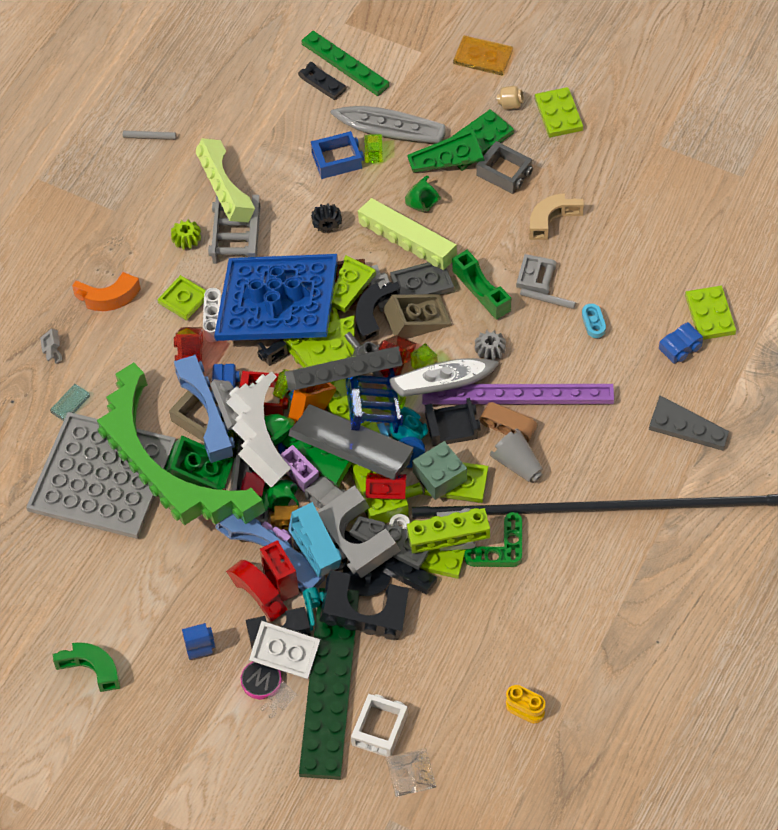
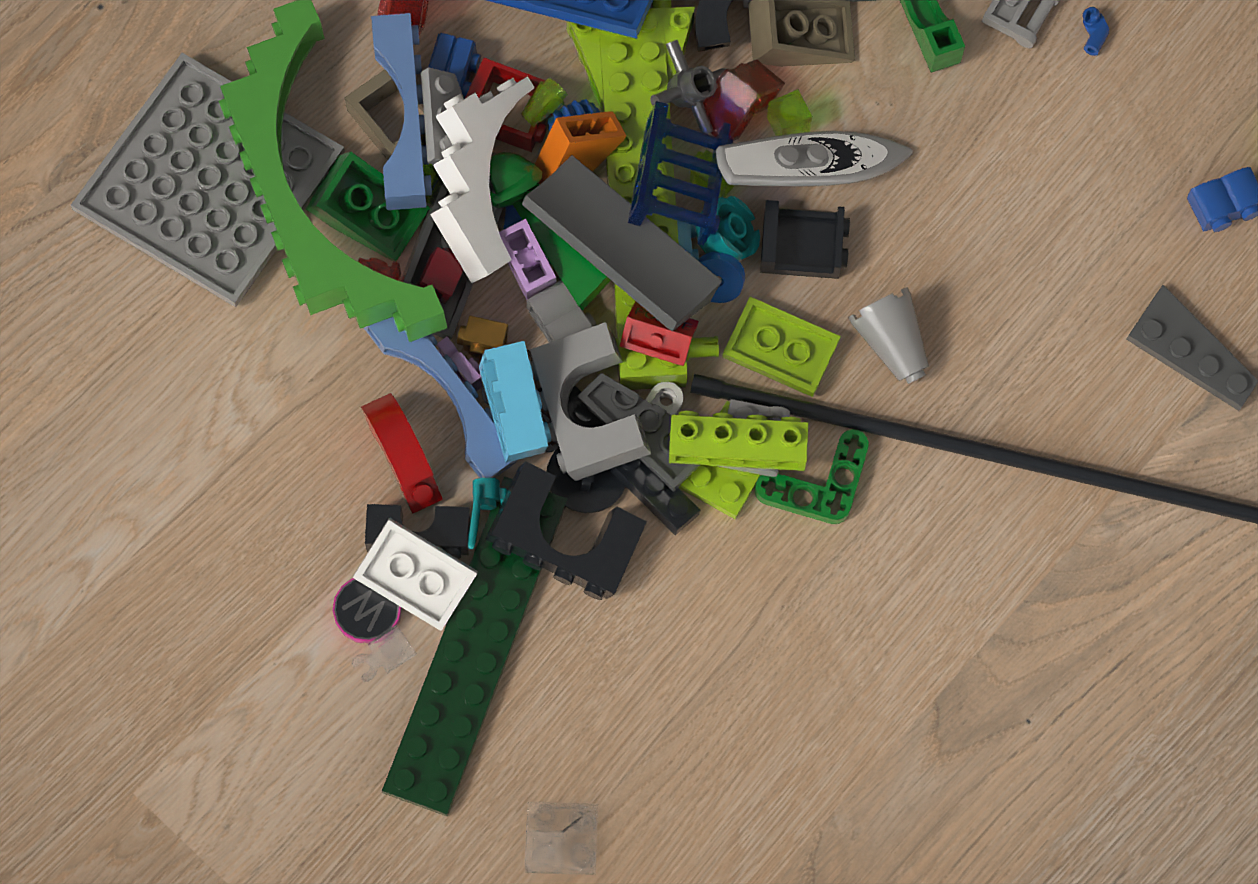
camera: 10 degrees right, 15 degrees up
(70, 402) = (192, 33): clear light blue tile -> none
(93, 658) = (122, 524): green arch -> none
(198, 641) = (281, 520): blue brick -> none
(273, 353) = (546, 36): black bracket -> none
(279, 494) = (482, 297): green piece -> none
(279, 573) = (443, 435): red window -> none
(343, 368) = (621, 111): dark grey arch -> none
(374, 743) = (512, 772): white window -> none
(439, 470) = (756, 326): sand green brick -> none
(490, 345) = (919, 120): light grey gear -> none
(507, 420) = (896, 264): medium nougat beam -> none
(524, 394) = (945, 224): medium lavender plate -> none
(525, 704) = (779, 774): yellow brick -> none
(547, 298) = (1028, 56): light grey bar -> none
(581, 274) = (1096, 28): none -> blue arm
(593, 322) = (1092, 121): medium azure plate -> none

